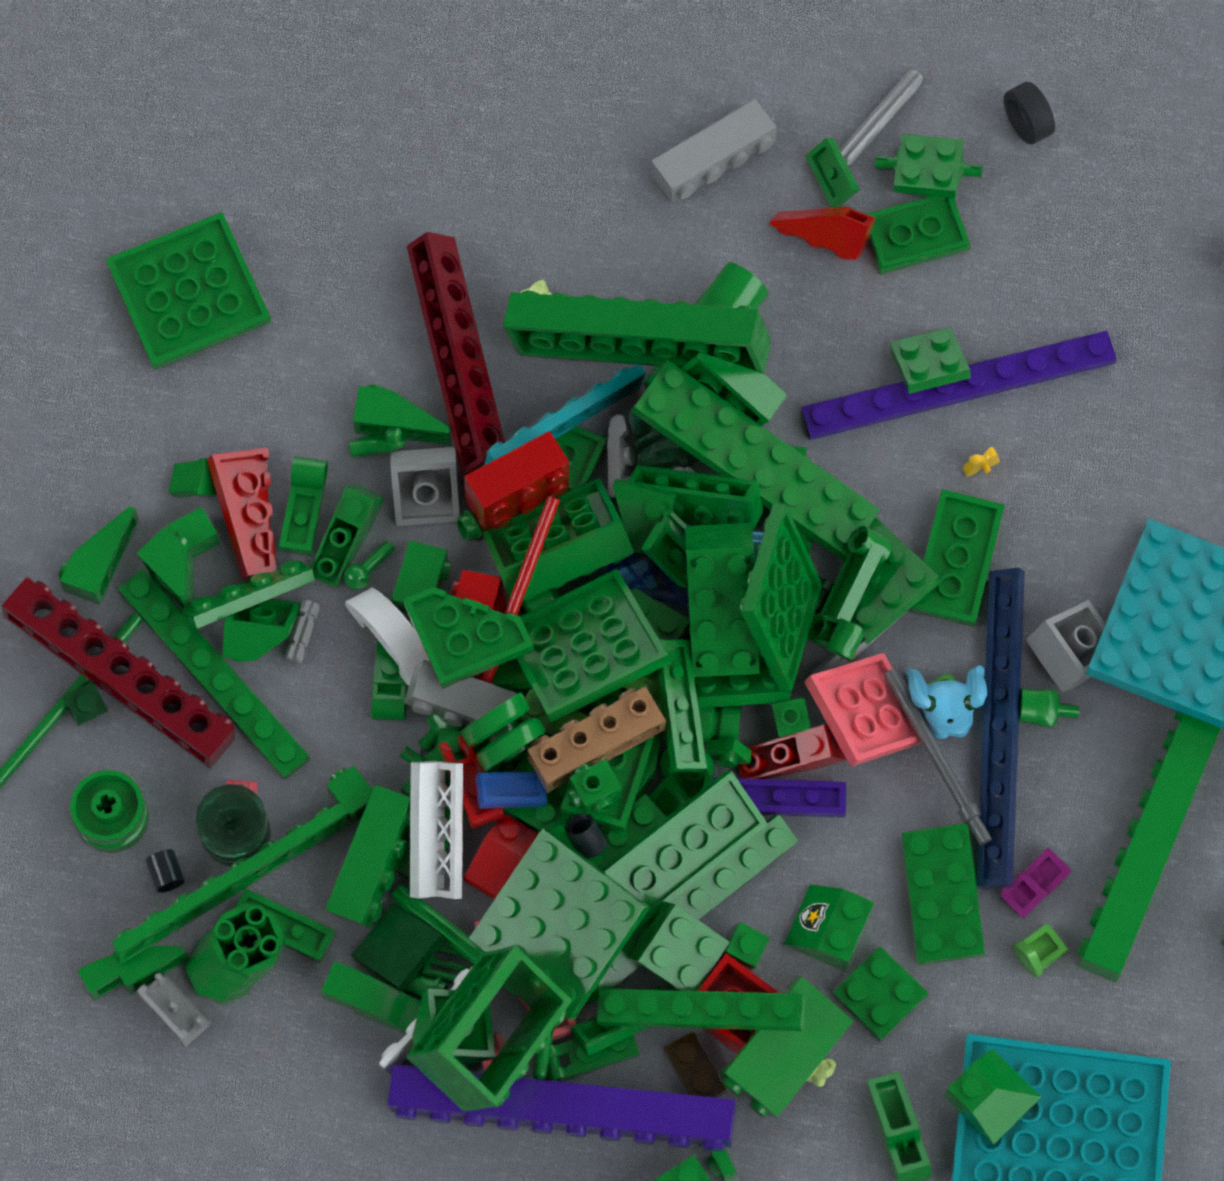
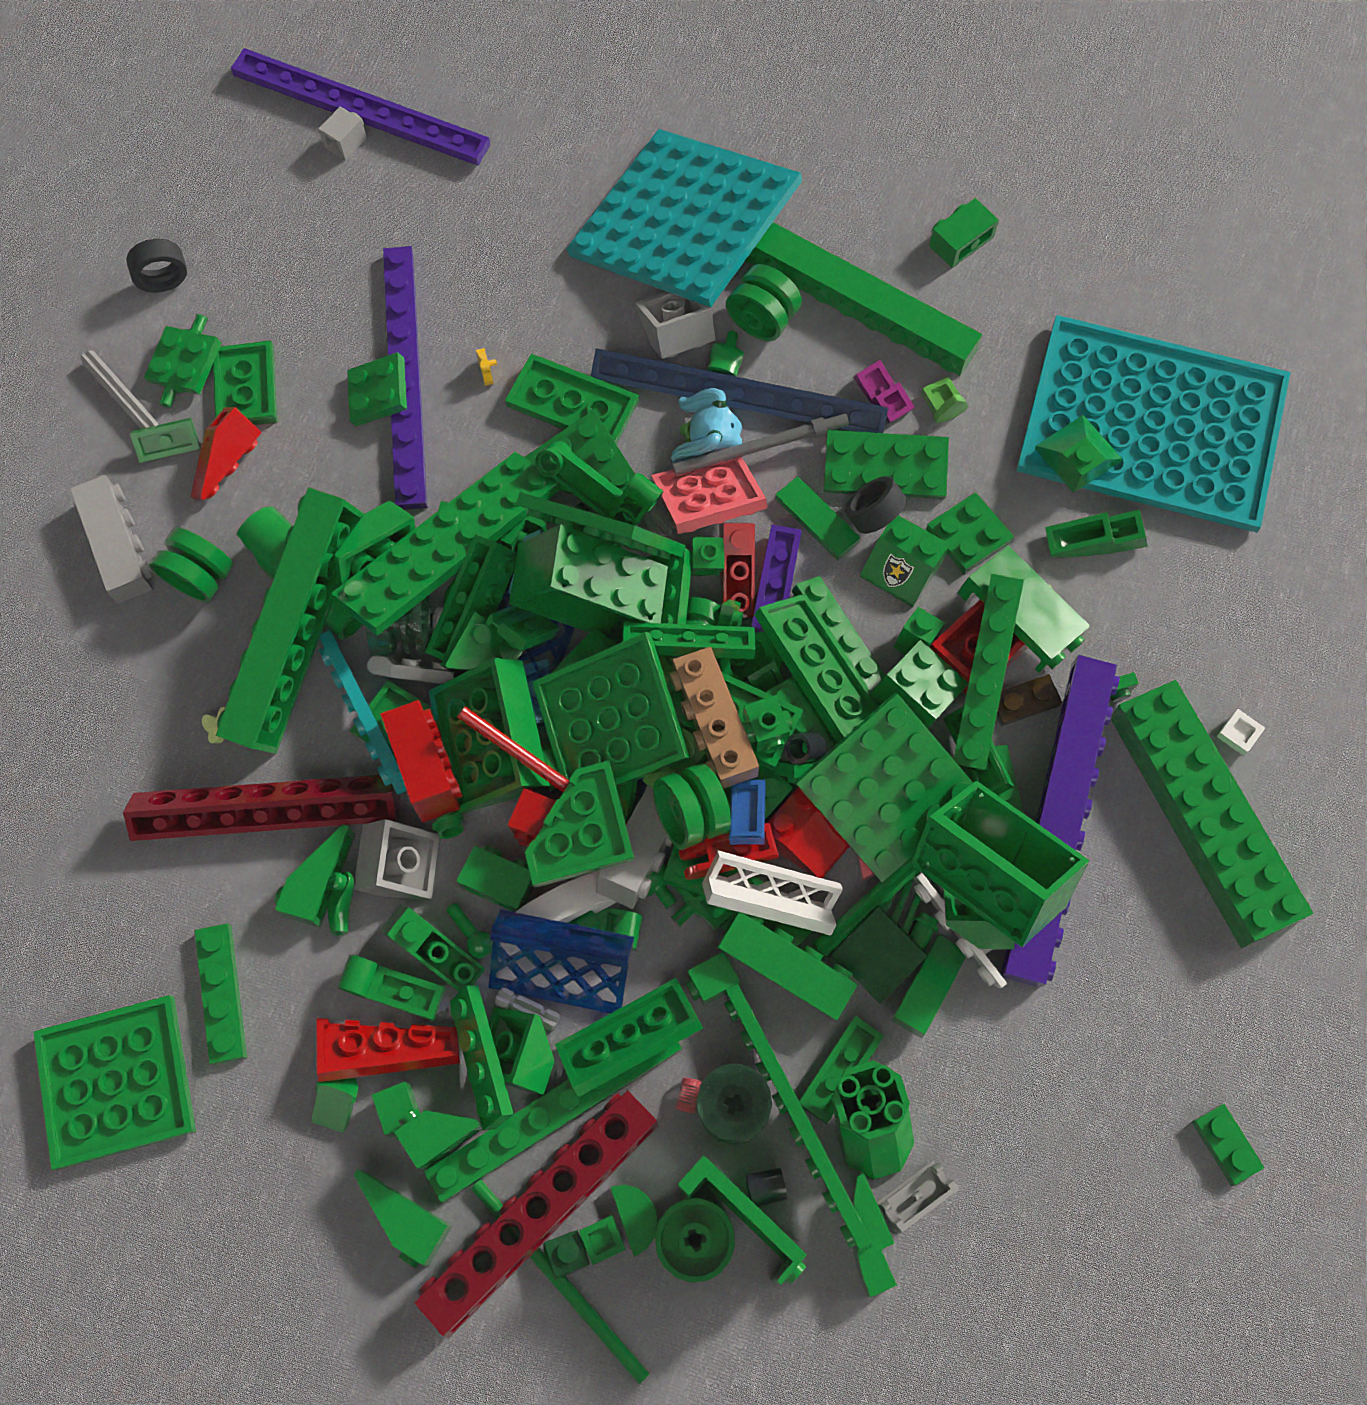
camera: 80 degrees left, 0 degrees up
(101, 733) = (602, 1240): none -> green plate
(129, 759) = (637, 1216): none -> green tile
(129, 841) = (707, 1173): none -> green panel
(280, 360) = (220, 994): none -> green plate
(284, 721) = (627, 1037): none -> green plate
(358, 649) = (562, 941): none -> clear blue fence
(686, 228) = (191, 564): none -> green wheel
(867, 831) = (817, 518): none -> green tile
(884, 882) = (875, 505): none -> black tyre
(1107, 731) = (763, 302): none -> green wheel

